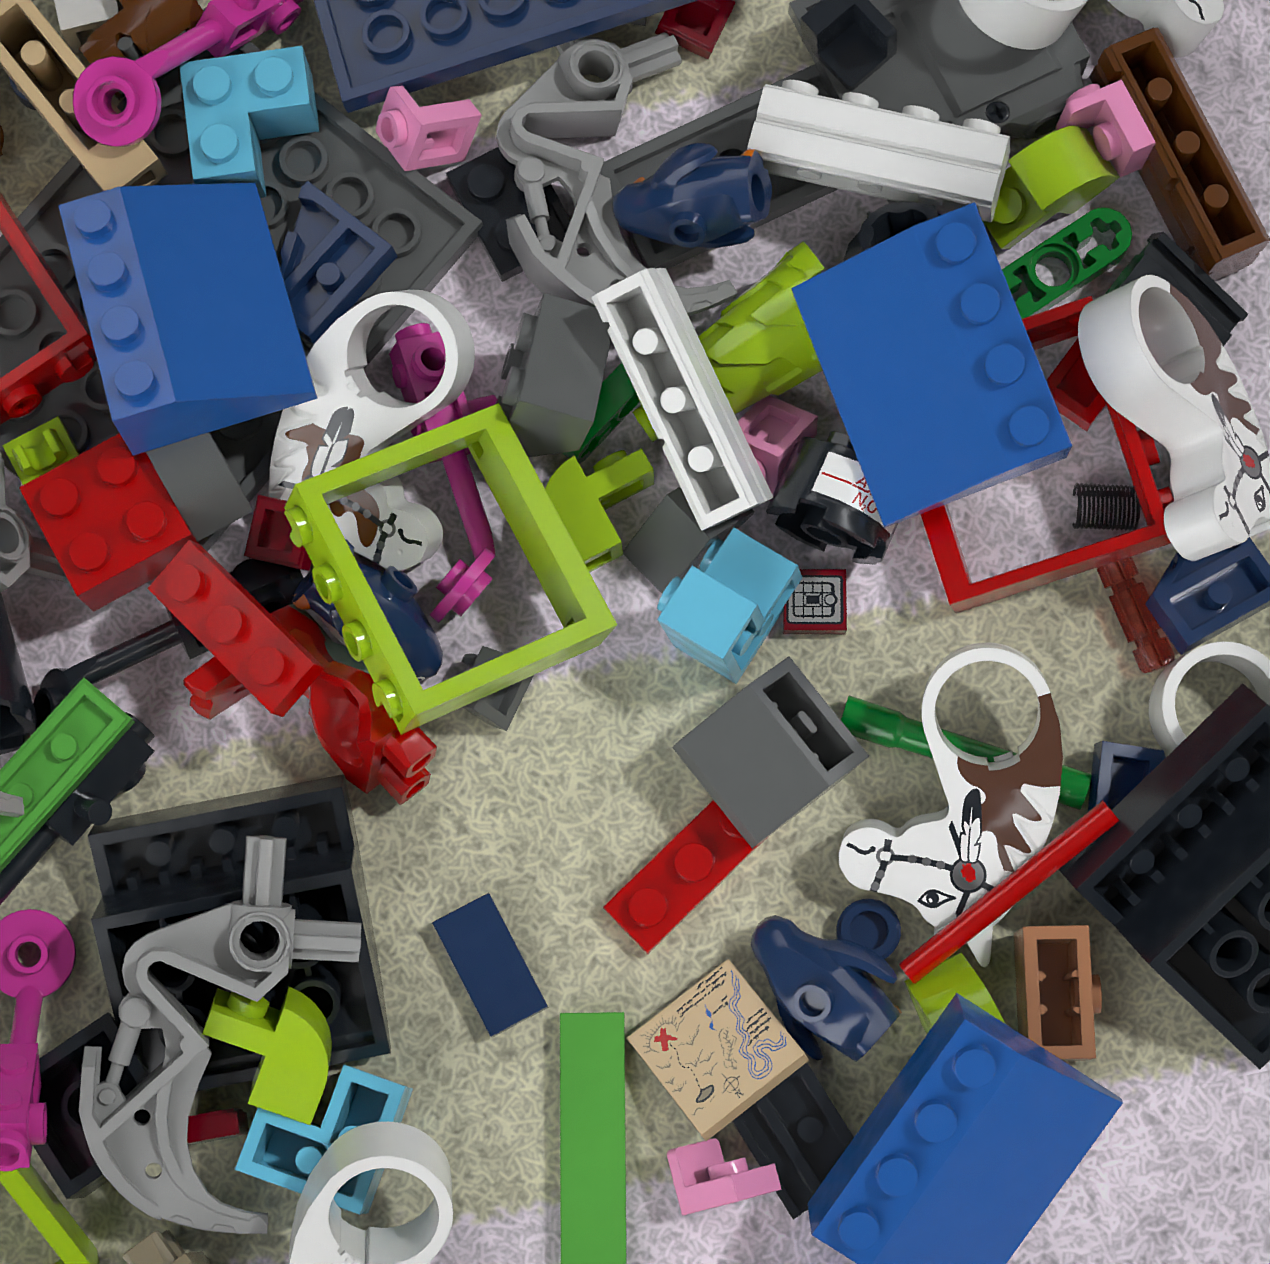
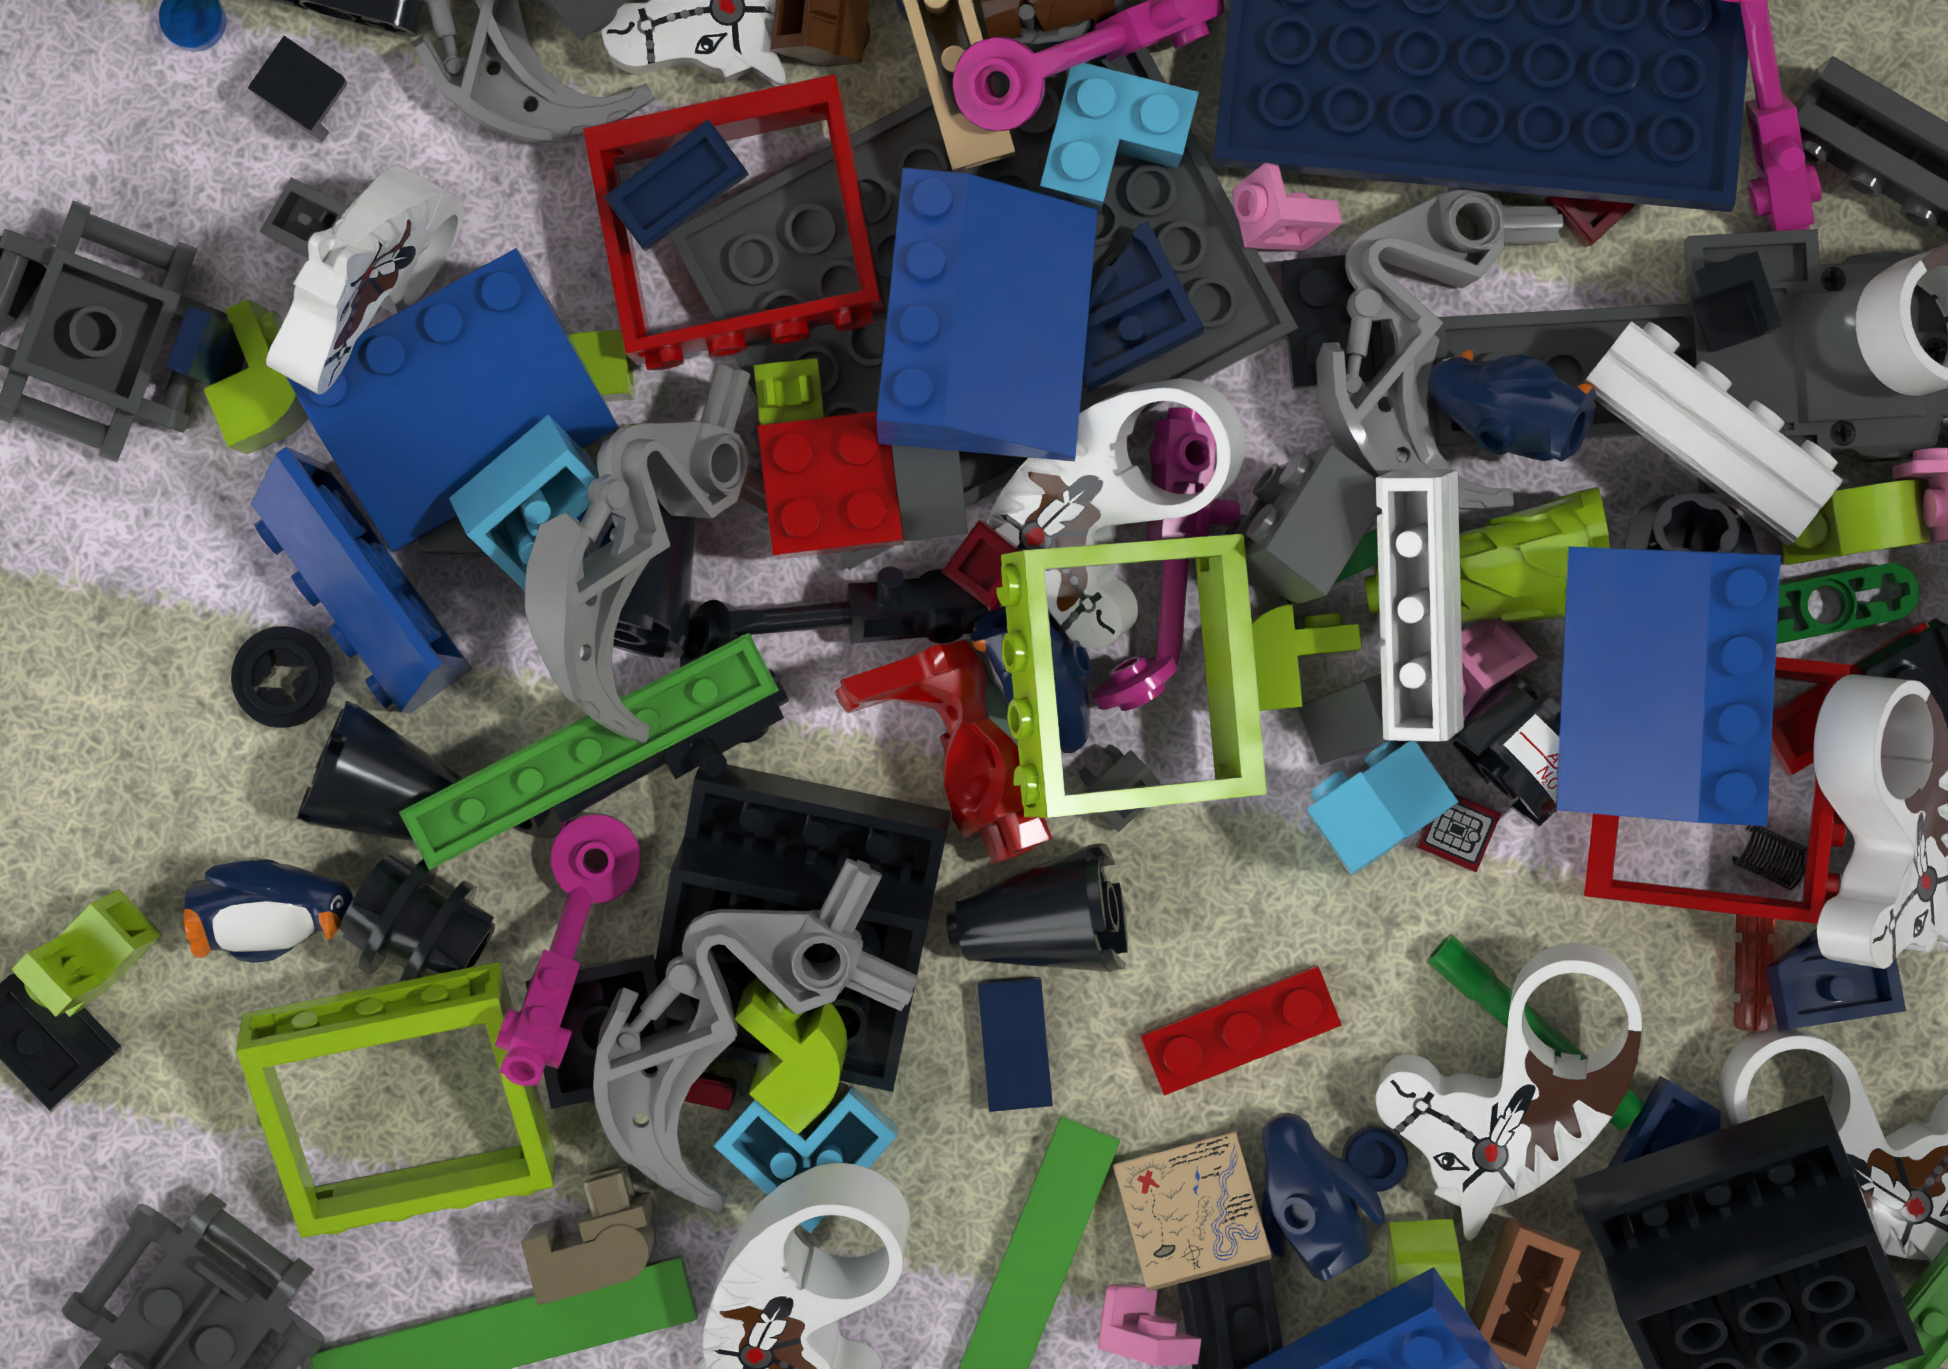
camera: 20 degrees right, 10 degrees up
(236, 628) = (910, 652): red plate -> none
(468, 829) = (1046, 916): none -> black cone
(770, 751) = (1358, 965): dark grey slope -> none
(1008, 892) = (1521, 1188): red bar -> none

